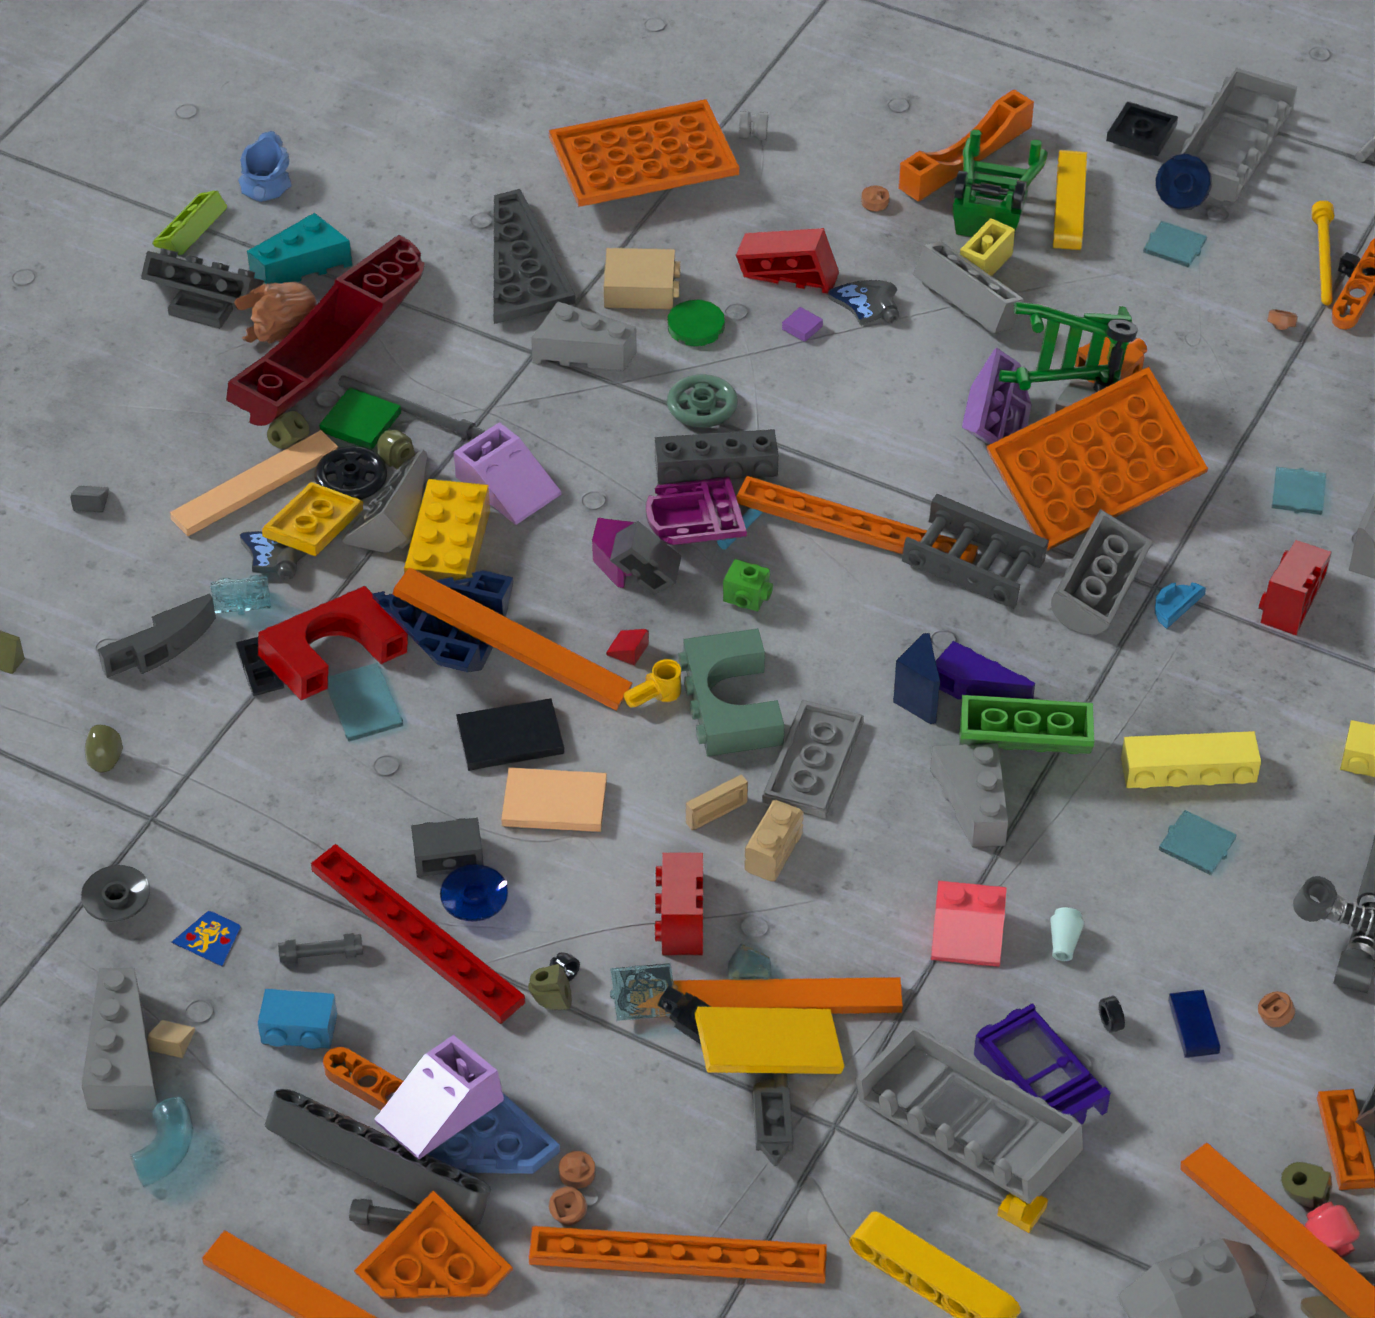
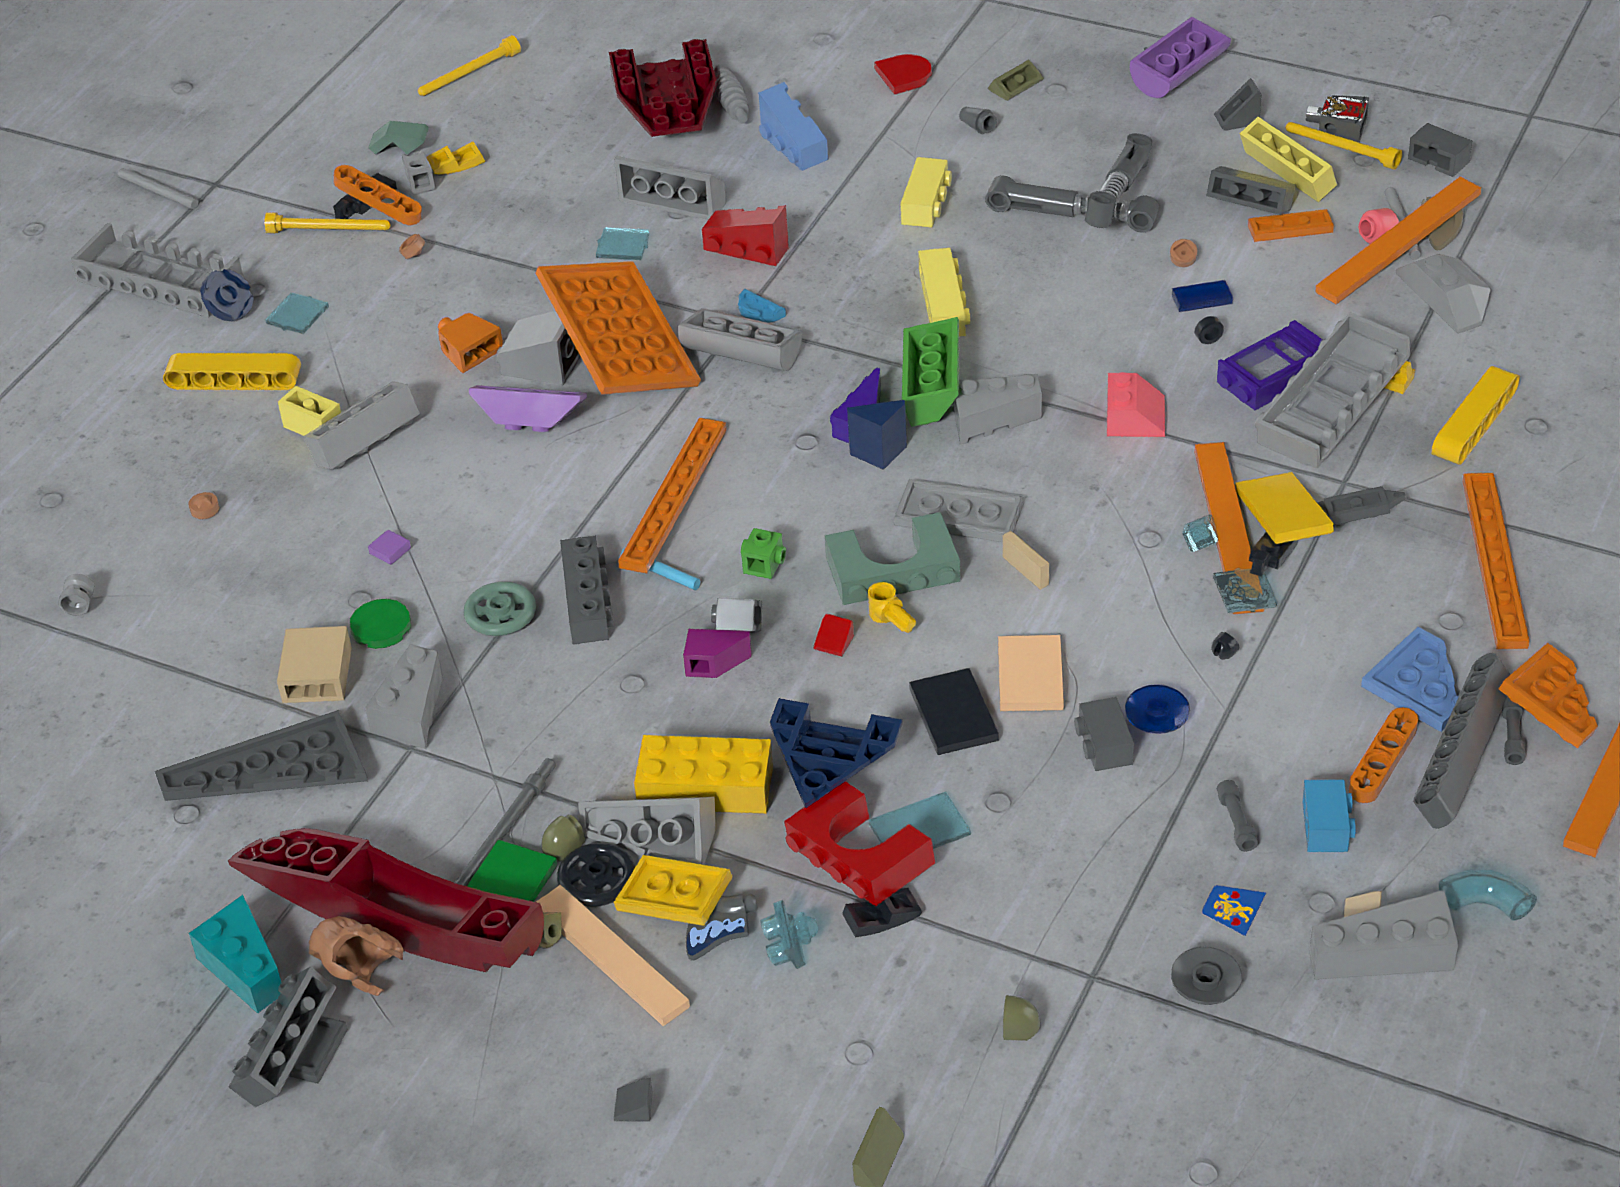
camera: 90 degrees left, 5 degrees down
(170, 635) = (854, 988): dark grey slope -> none
(191, 222) = (154, 1084): lime slope -> none
(265, 168) = (79, 1008): medium blue piece -> none
(418, 934) = (1204, 749): red plate -> none
(440, 1097) = (1407, 687): slope -> none
(512, 638) = (848, 703): orange tile -> none
(513, 474) = (606, 740): lavender slope -> none
(551, 988) = (1255, 645): olive piece -> none
(568, 1205) = (1472, 621): nougat tile -> none
(577, 1169) = (1433, 621): nougat tile -> none
(643, 152) = (118, 668): orange piece -> none
(680, 903) = (1148, 568): red wedge -> none
(695, 512) = (670, 590): magenta slope -> none
(773, 840) = (1066, 519): tan brick -> none
(789, 256) = (300, 549): red wedge -> none
(867, 300) = (359, 502): dark grey arm -> none
(929, 171) = (178, 458): orange arch -> none
(972, 212) = (254, 421): green hand -> none
(983, 529) = (697, 397): dark grey fence -> none
(1065, 930) = (1132, 357): light aqua cone -> none
(1115, 327) = (486, 314): green hand -> none
(1142, 128) = (133, 328): black plate -> none
(1197, 842) = (1019, 296): clear light blue piece -> none
(1307, 1184) = (1345, 234): olive piece -> none

